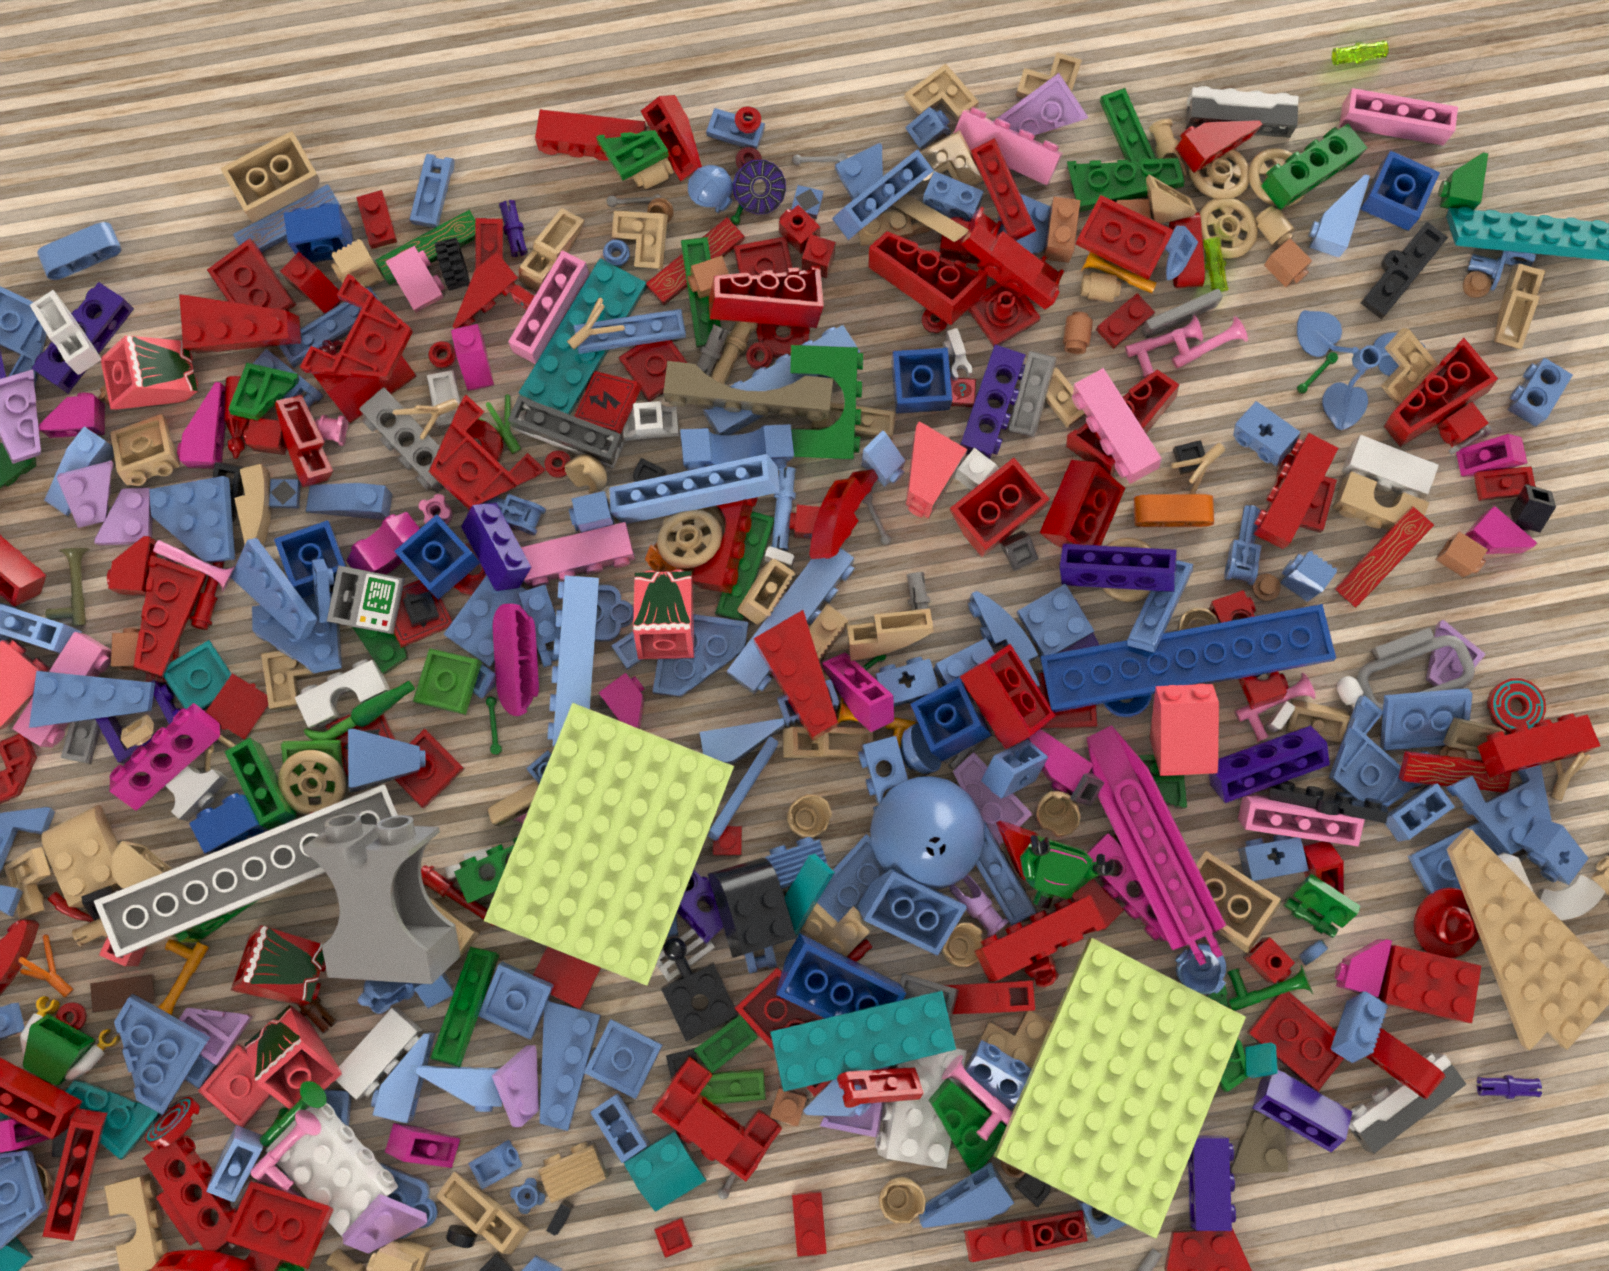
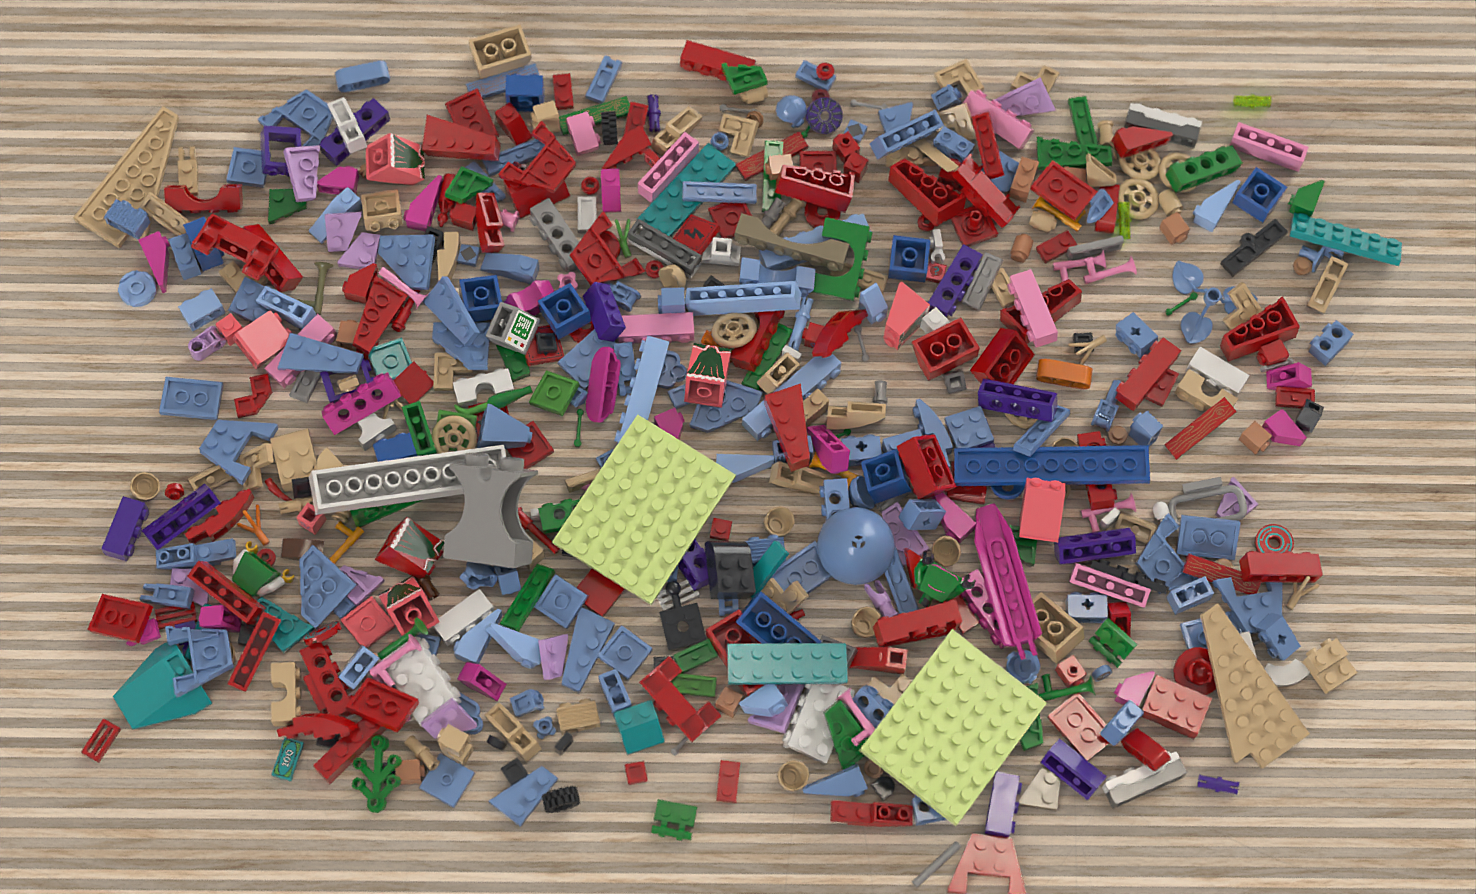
camera: 10 degrees right, 10 degrees down
(322, 580) = (487, 309): medium blue plate -> none
(435, 411) = (580, 219): tan plant -> none
(587, 330) = (690, 186): tan plant -> none
(673, 127) = (774, 67): red slope -> none
(743, 789) = (738, 495): medium blue tile -> none
(752, 352) = (799, 220): red plate -> none
(880, 1086) = (792, 692): red plate -> none
(911, 911) = (836, 589): medium blue slope -> none
(1043, 971) = (916, 648): red piece -> none
(1087, 789) = (968, 537): flat silver slope -> none
(1261, 1060) = (1051, 732): teal tile -> none
(1468, 734) = (1232, 551): dark tan tile -> none

